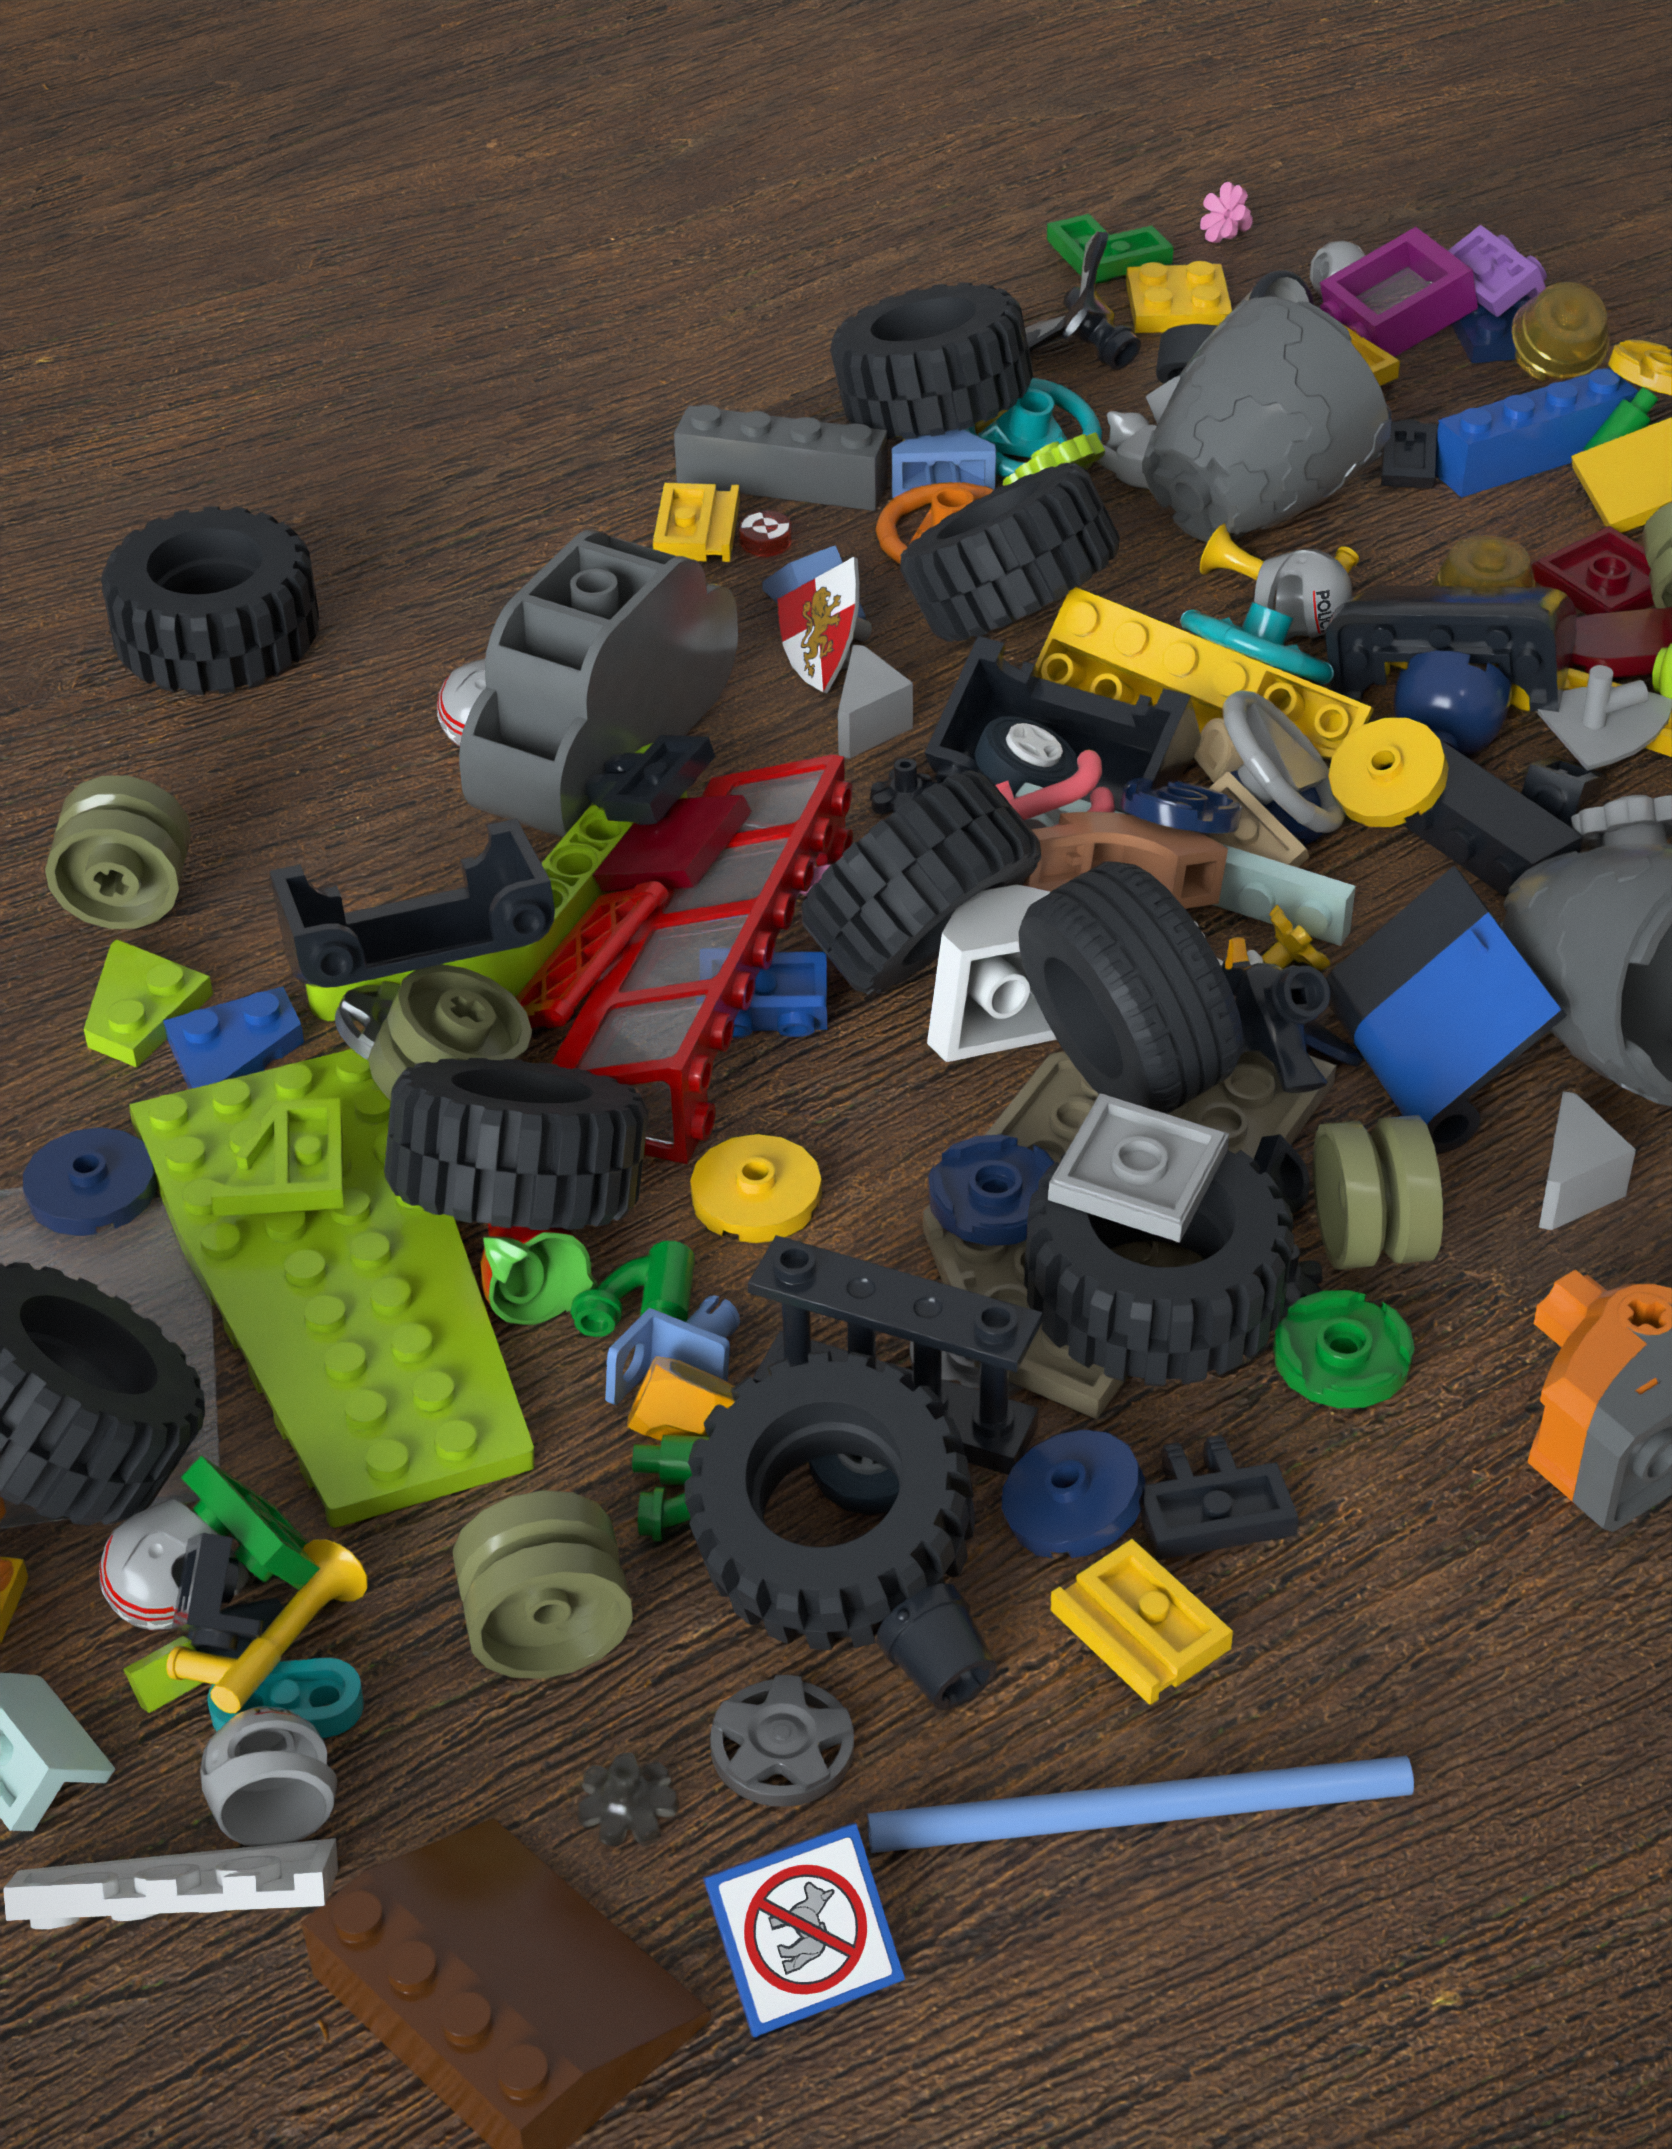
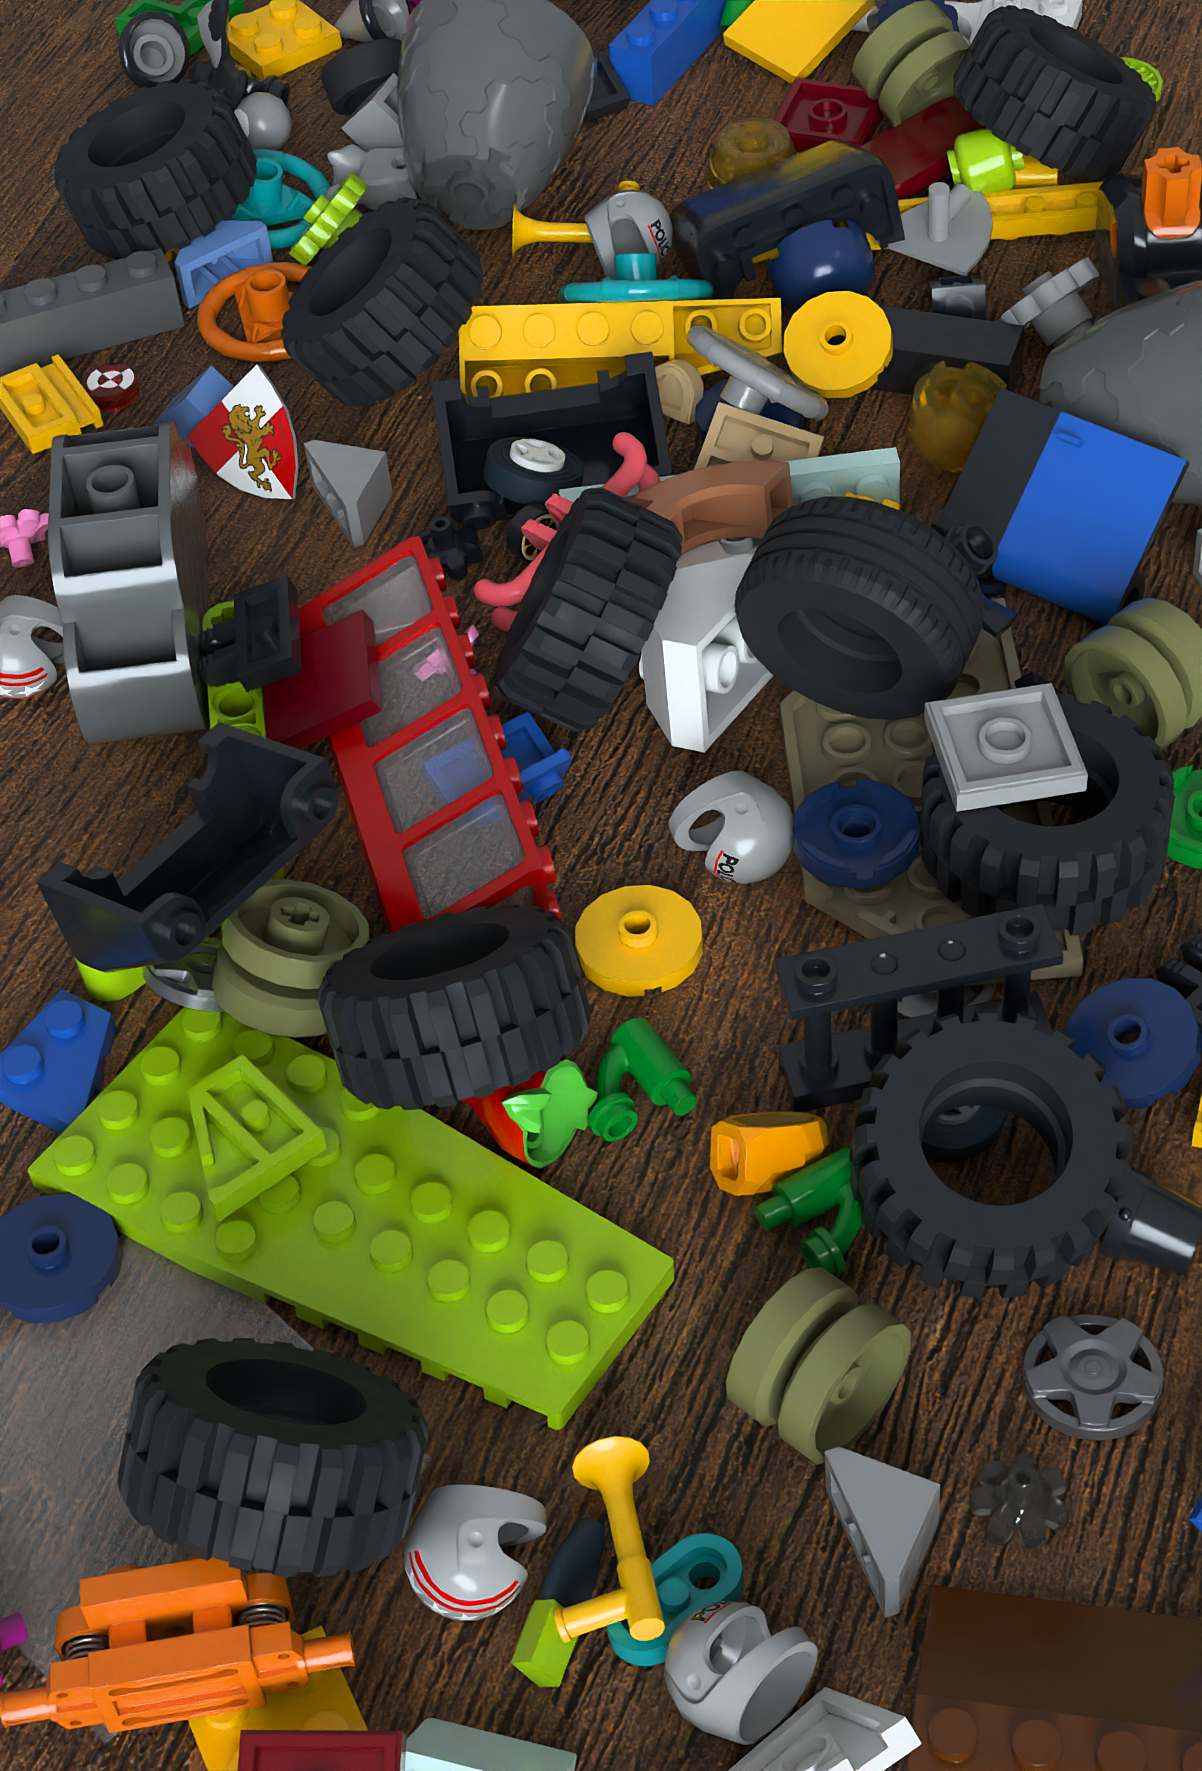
camera: 30 degrees left, 5 degrees up
(205, 1582) = (551, 1546): black bracket -> none
(265, 1535) = (519, 1466): green plate -> none
(492, 1749) = (886, 1519): none -> light grey slope
(587, 953) = (352, 839): red window -> none
(696, 1342) = (714, 1098): medium blue bracket -> none
(909, 1137) = (751, 835): none -> light grey helmet
(1048, 263) = (154, 49): none -> light grey hat
(1085, 364) = (264, 120): none -> light grey piece
(1181, 806) = (716, 446): dark blue plate -> none
(1432, 854) = (950, 412): none -> clear yellow cone

